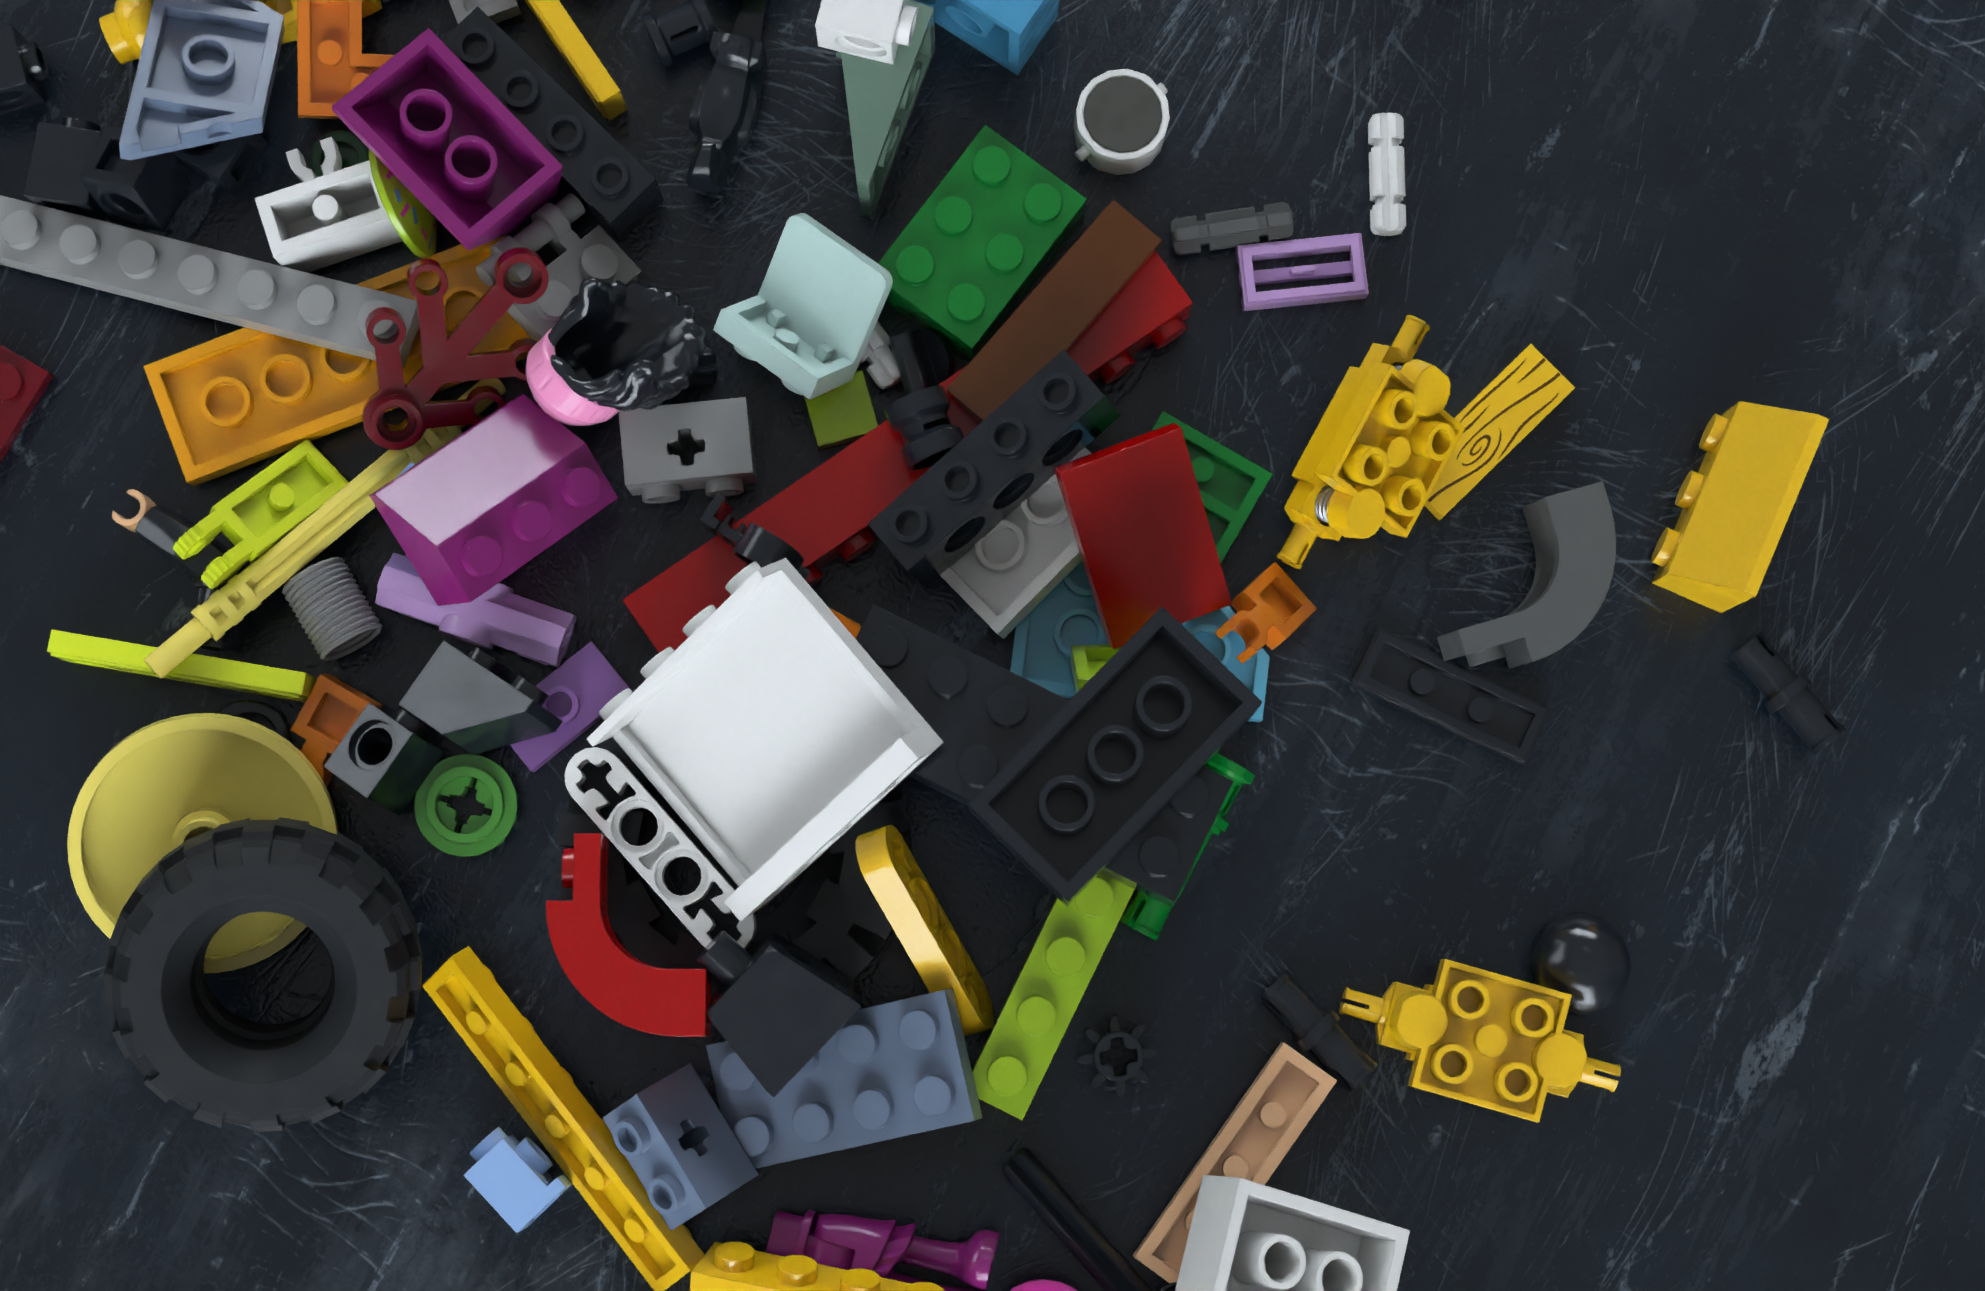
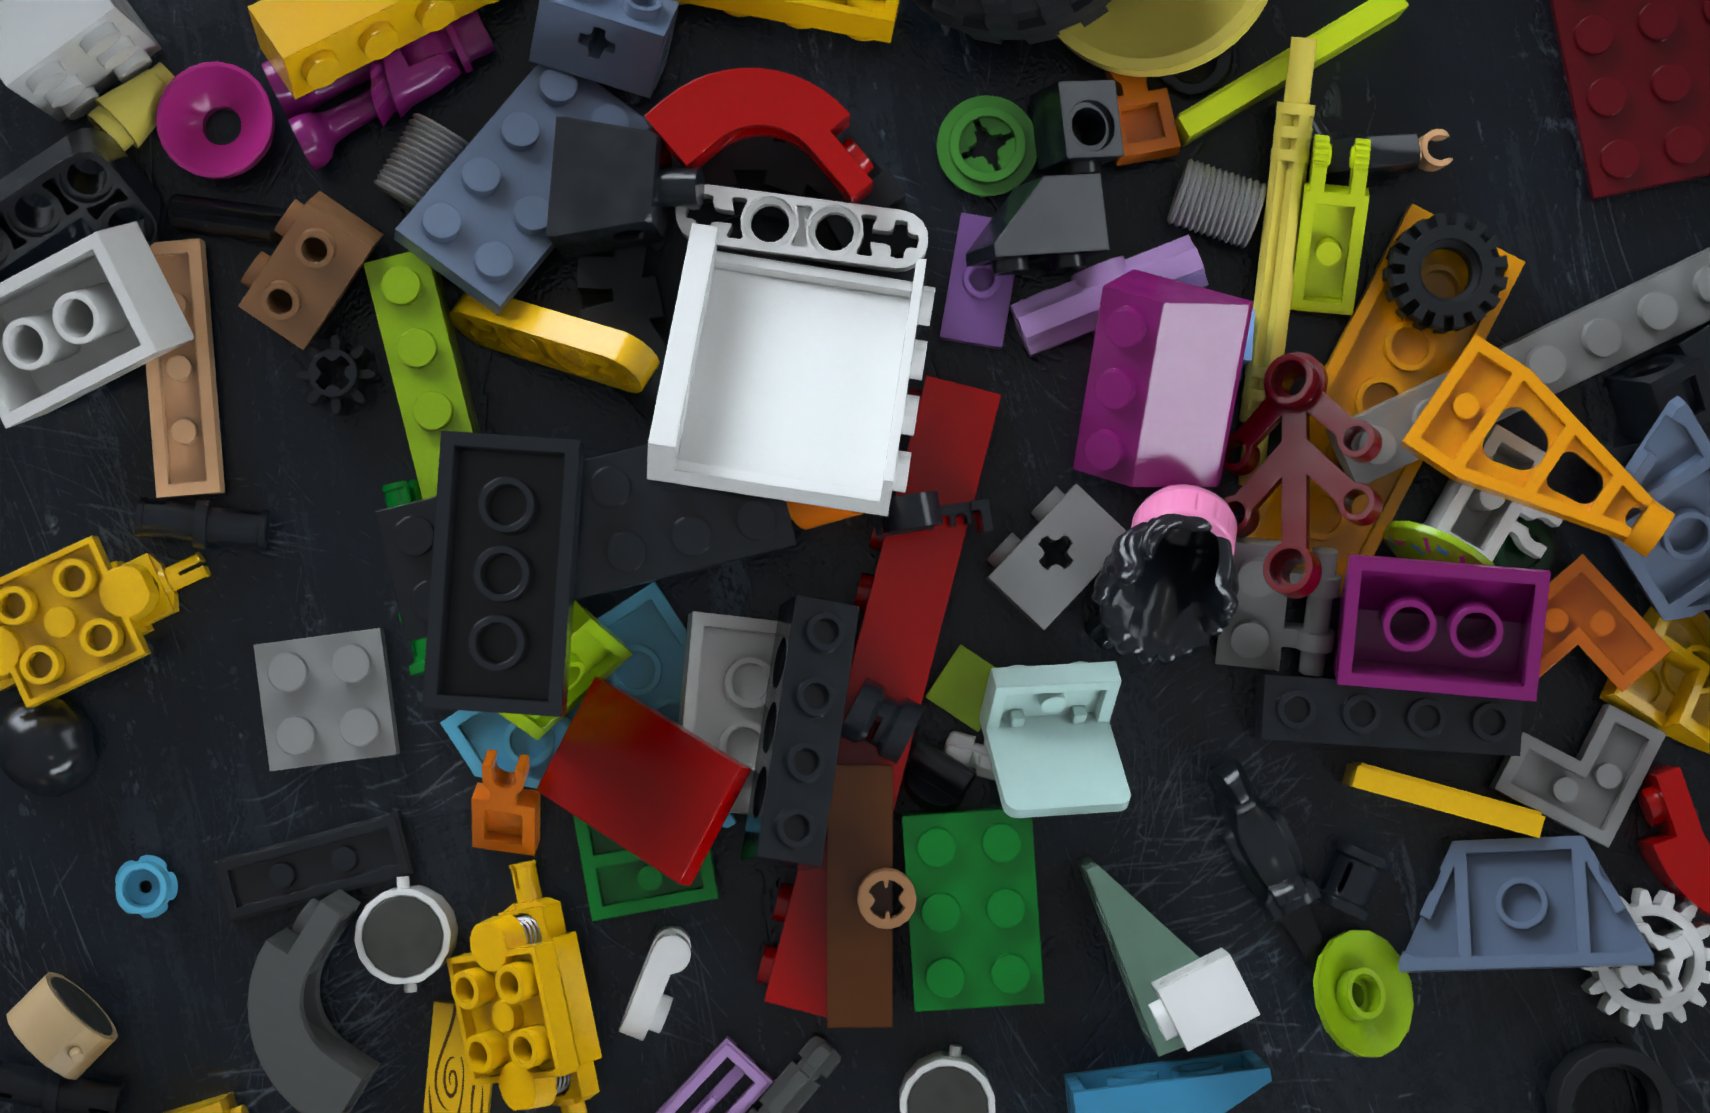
camera: 140 degrees right, 5 degrees up
(182, 378) = (1483, 267): none -> black tyre
(284, 283) = (1466, 407): none -> light orange plate
(910, 1167) = (418, 159): none -> light grey piece
(1018, 283) = (906, 896): none -> medium nougat bush
(1068, 1155) = (308, 269): none -> medium nougat brick
(1281, 381) = (648, 1005): none -> white plate
(1335, 815) = (326, 699): none -> light grey plate
(1421, 584) = (406, 934): none -> pearl dark grey piece
(1609, 789) = (129, 891): none -> medium azure plate
(1742, 733) = (62, 1025): none -> tan piece

